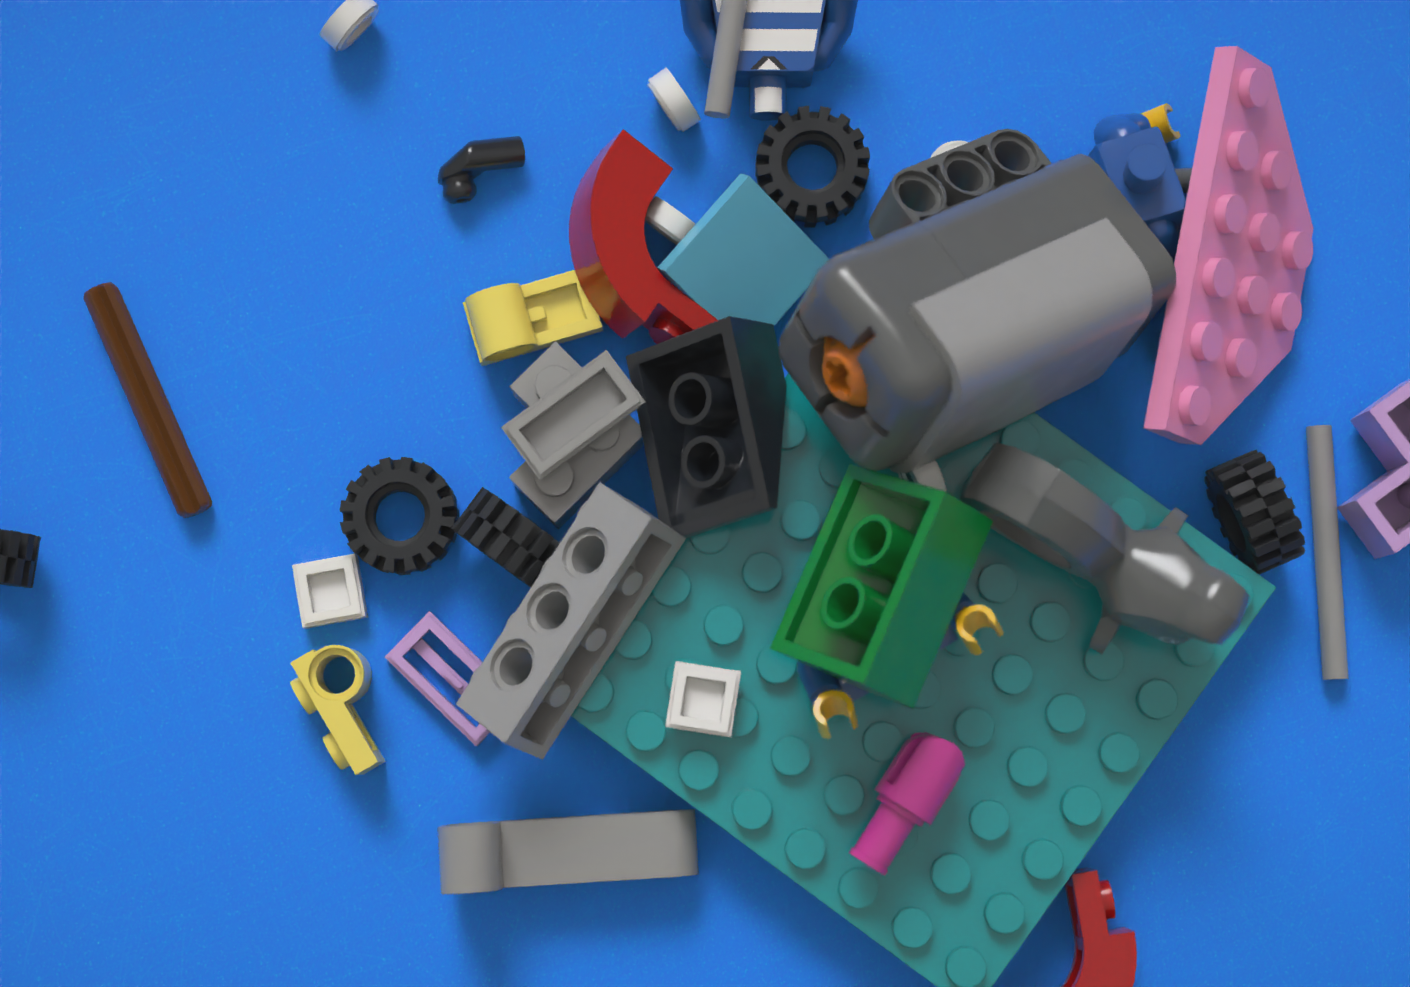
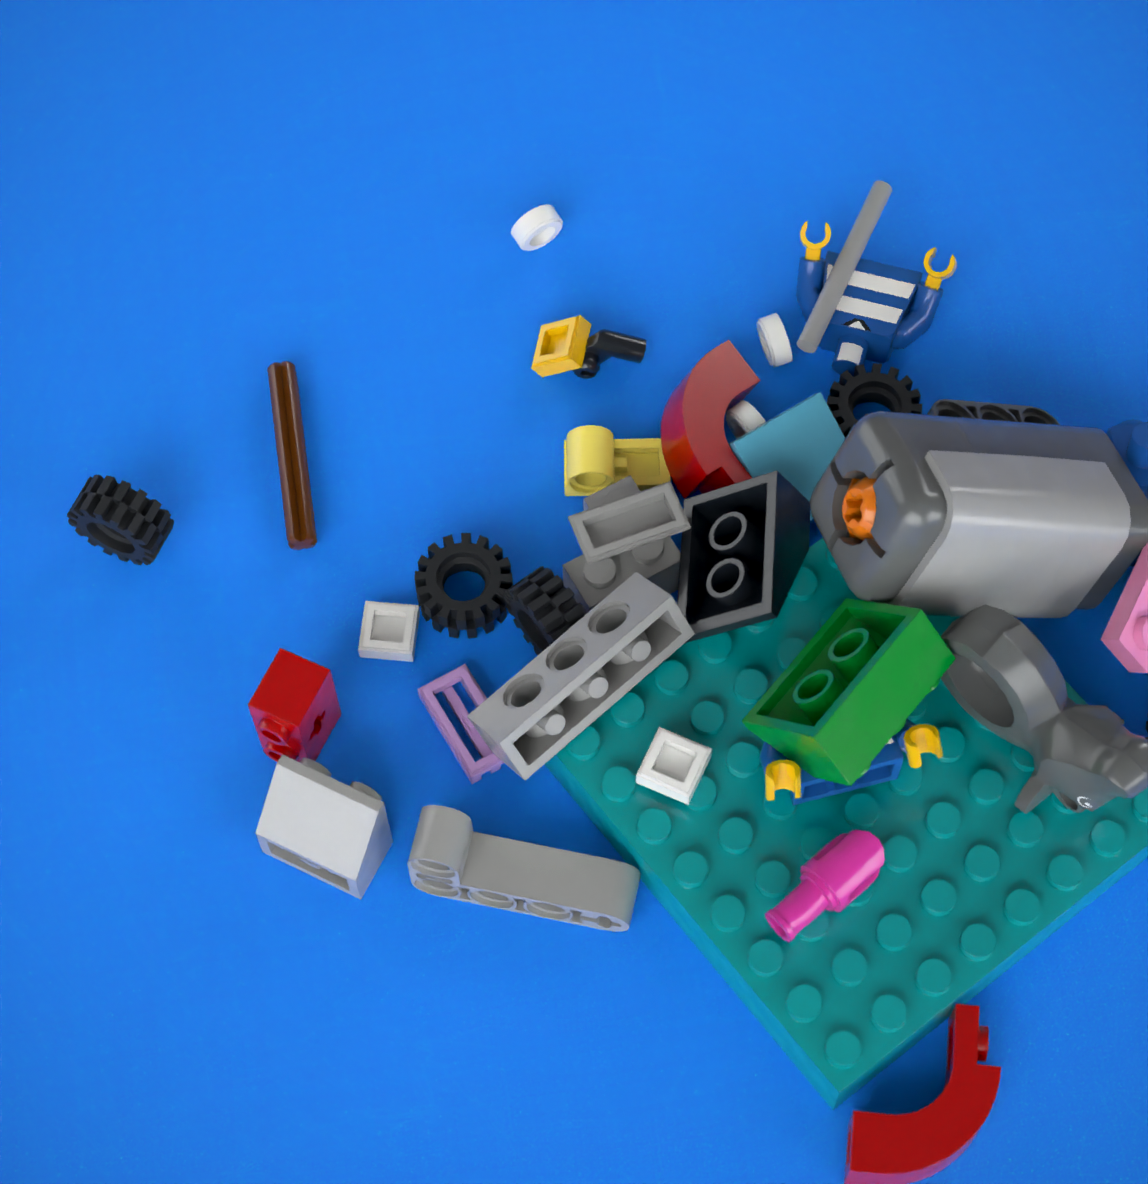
camera: 20 degrees right, 20 degrees down
(255, 739) = (294, 707): none -> red brick
(331, 863) = (324, 825): none -> slope
(348, 737) = (369, 712): light yellow plate -> none
(424, 174) = (561, 346): none -> yellow tile

